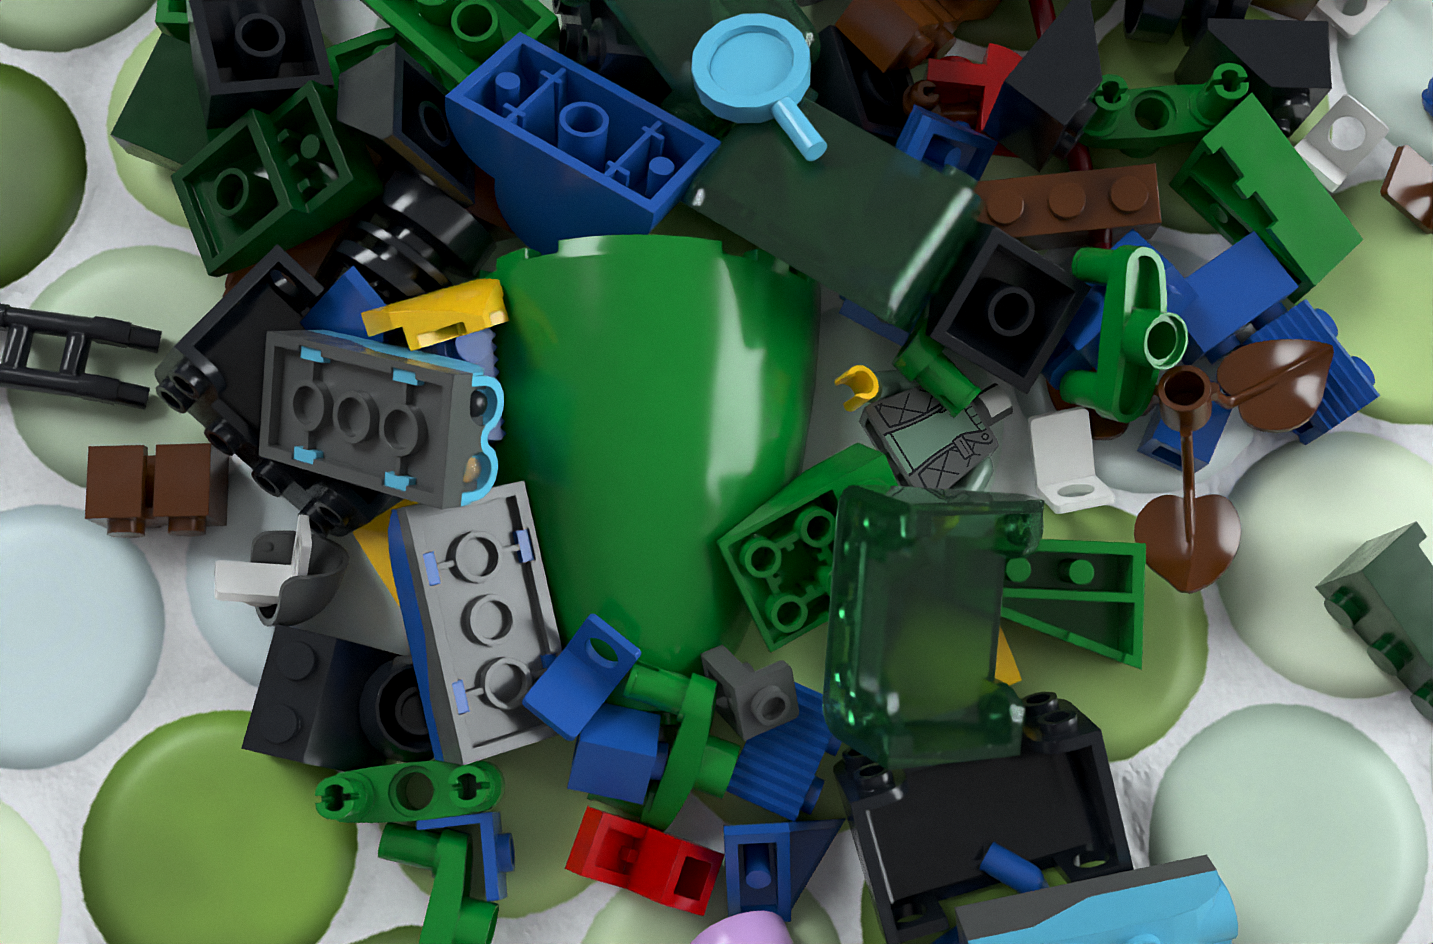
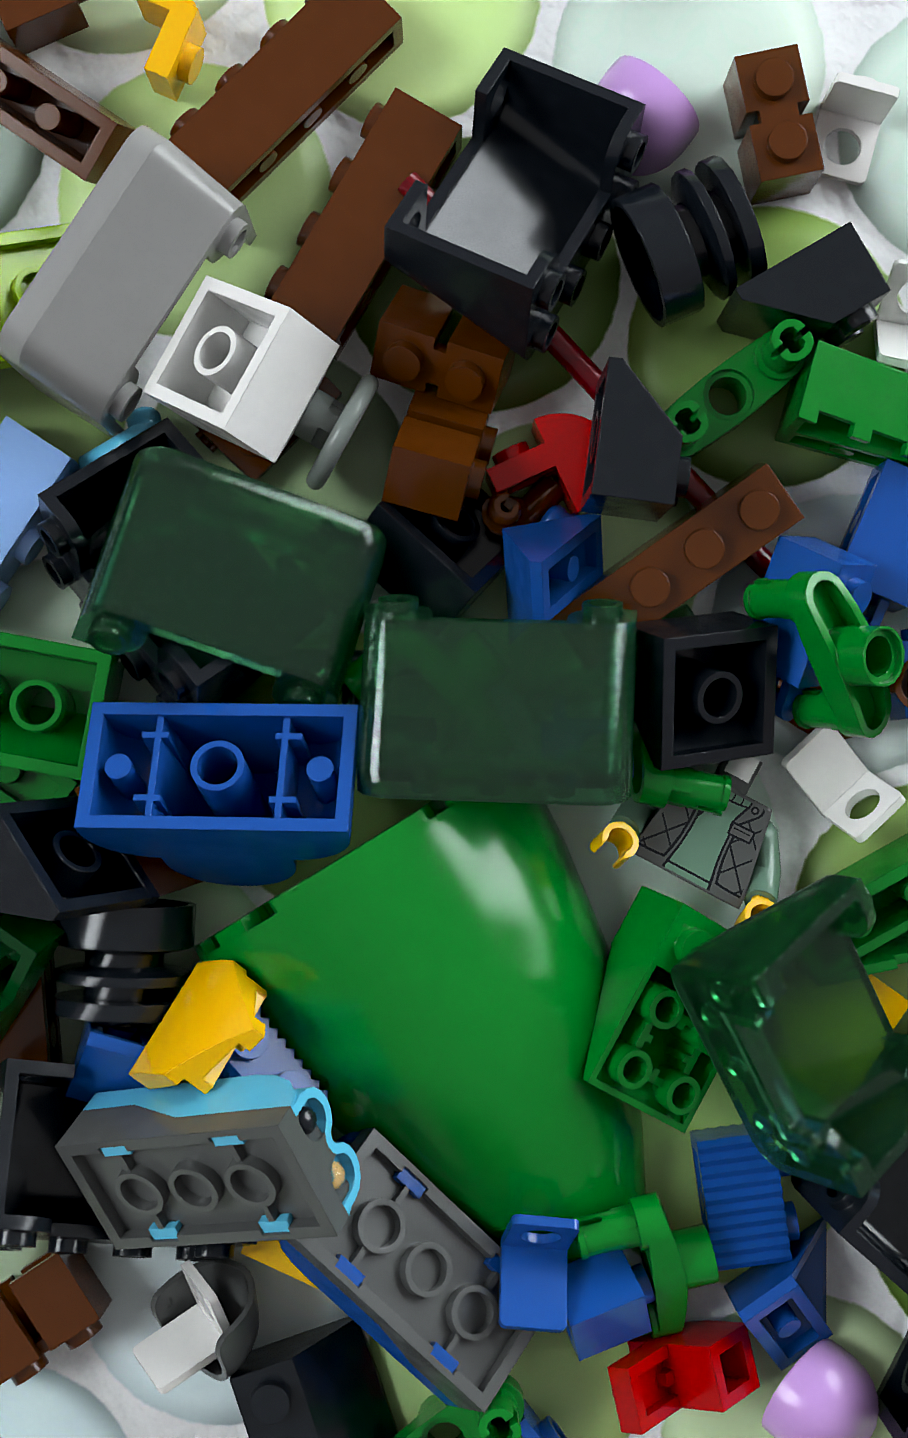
camera: 35 degrees left, 10 degrees up
(394, 712) = (376, 1380): black hat -> none
(751, 698) = (692, 1187): dark grey bracket -> none
(757, 72) = (352, 623): medium azure piece -> none

